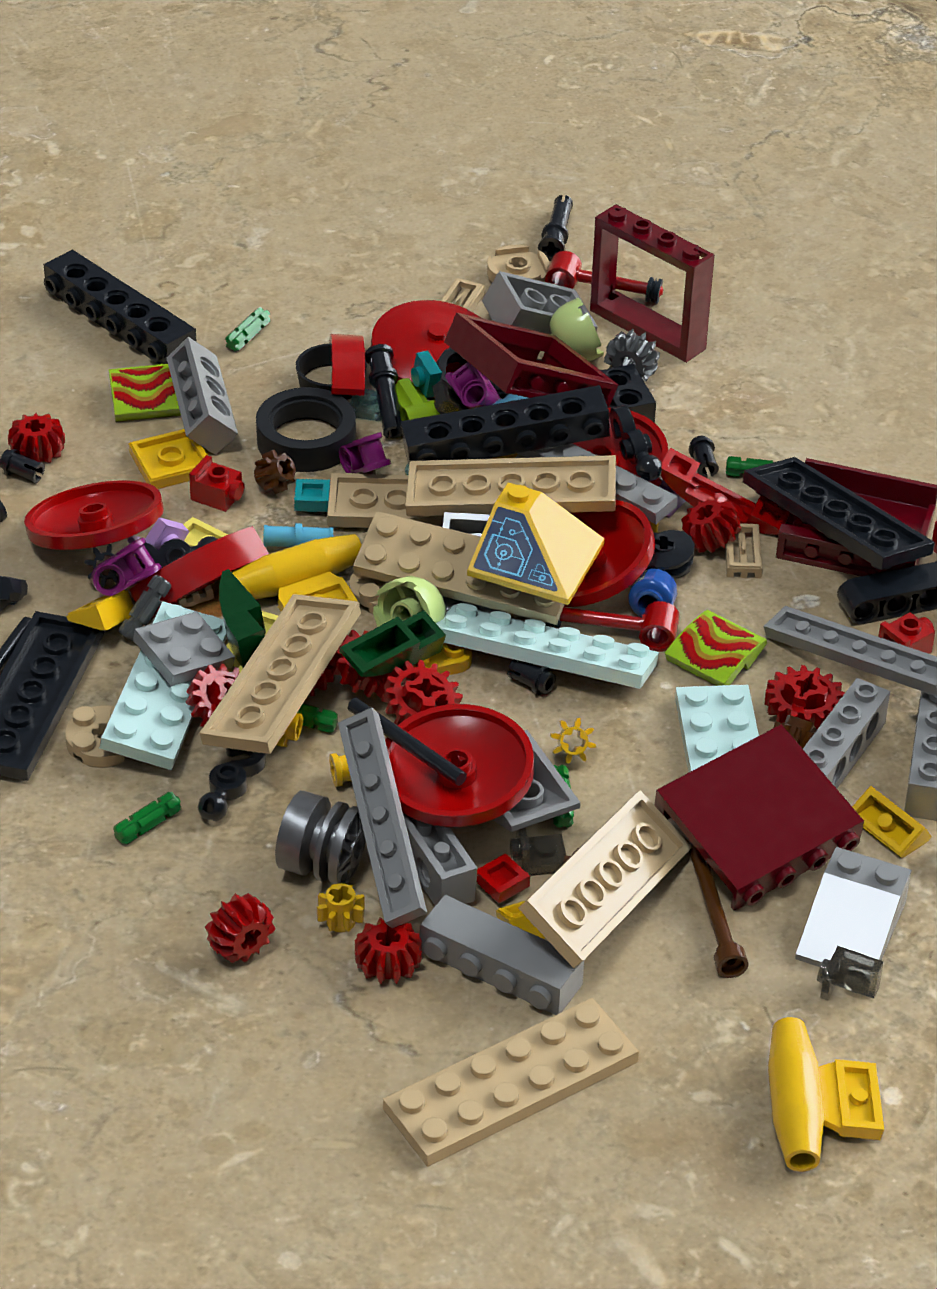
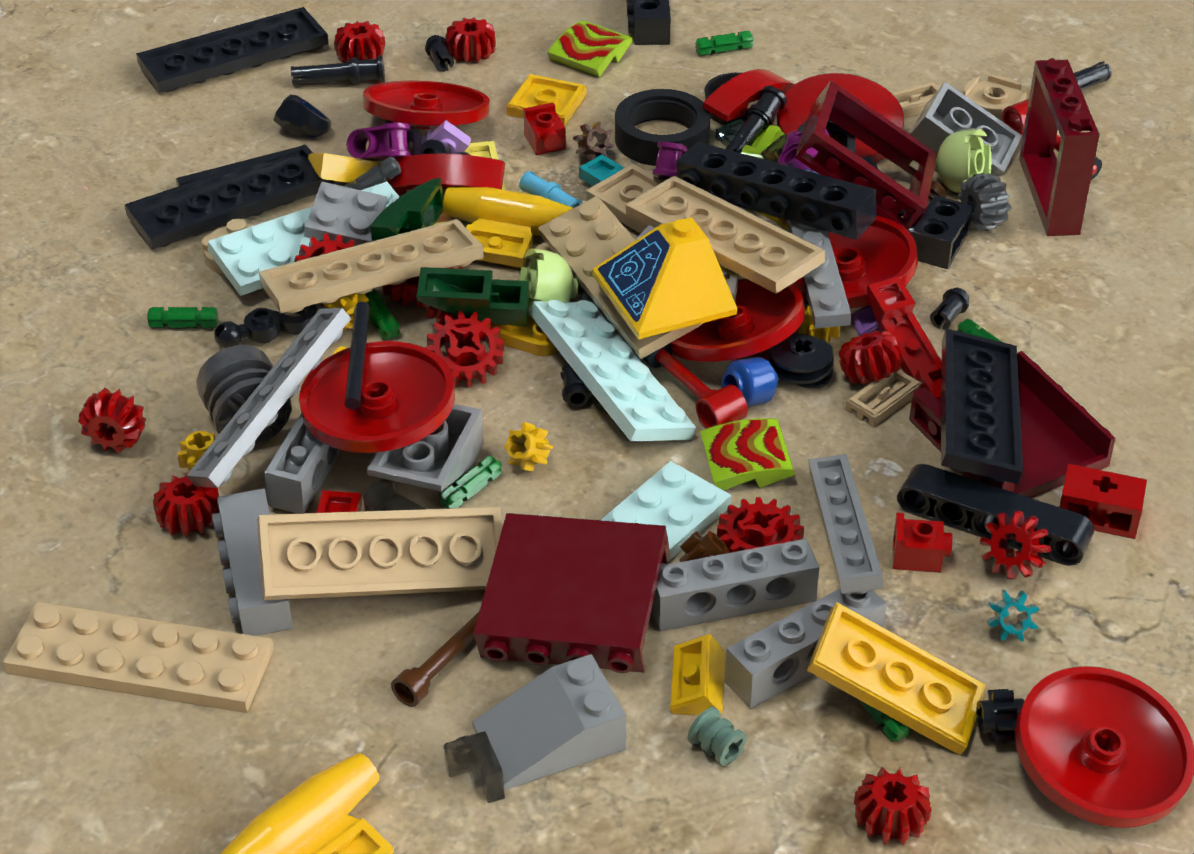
camera: 45 degrees right, 0 degrees up
(202, 396) = (614, 66): light grey brick -> none
(425, 373) = (791, 122): teal plate -> none
(634, 444) = (868, 256): black piece -> none

